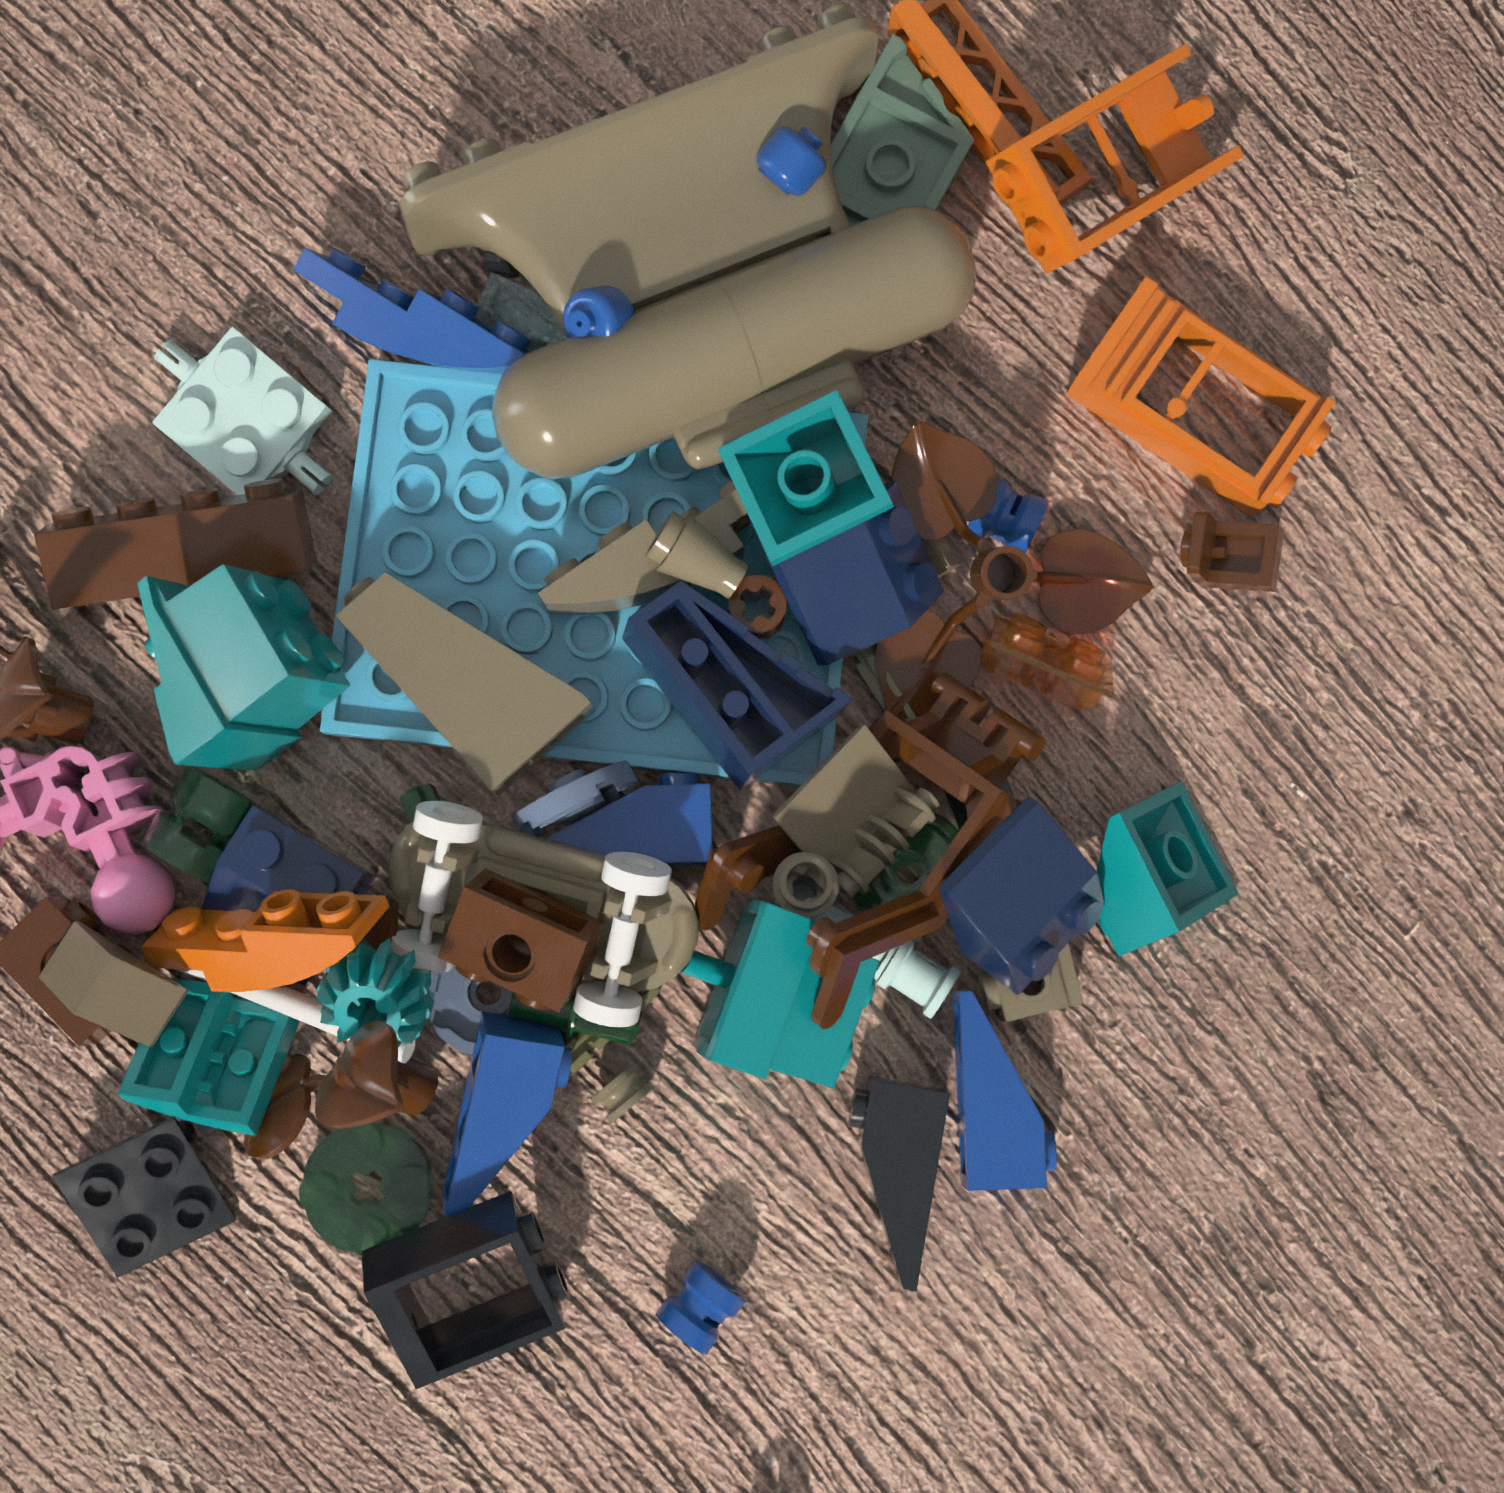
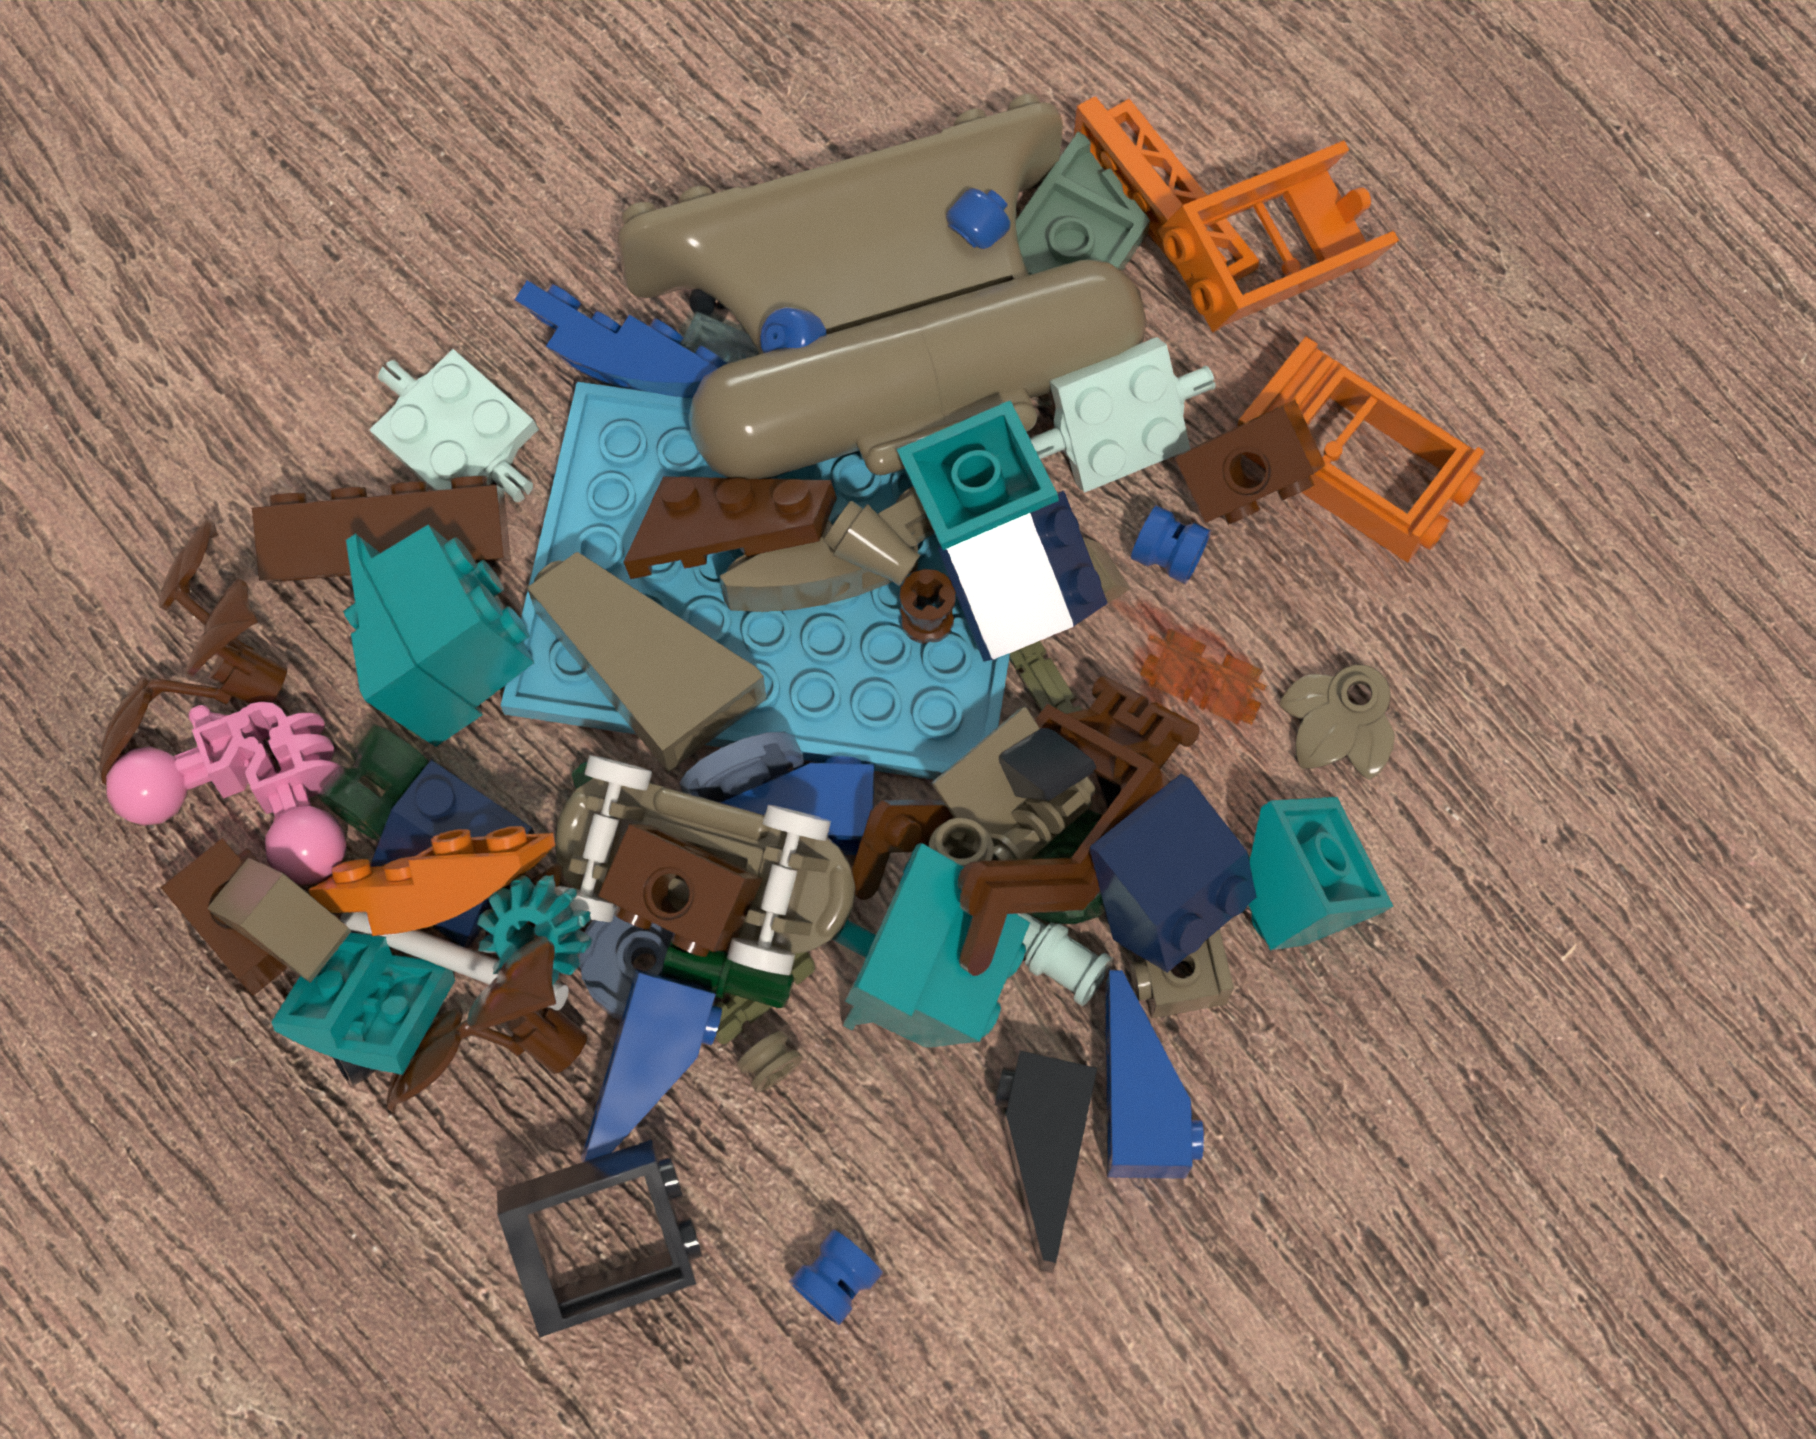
camera: 10 degrees right, 15 degrees down
(145, 1196) = (284, 1138): black hinge -> none
(329, 1186) = (499, 1107): clear green plate -> none
(535, 521) = (723, 514): none -> reddish brown wing
(729, 684) = (897, 670): dark blue wedge -> none
(887, 787) = (1044, 765): none -> black slope
(952, 371) = (1121, 414): none -> light aqua plate
(1083, 574) = (1117, 504): reddish brown plant -> none
(1114, 401) = (1277, 438): none -> reddish brown brick
(1180, 708) = (1337, 726): none -> dark tan plate
(1232, 553) = (1387, 587): reddish brown bracket -> none

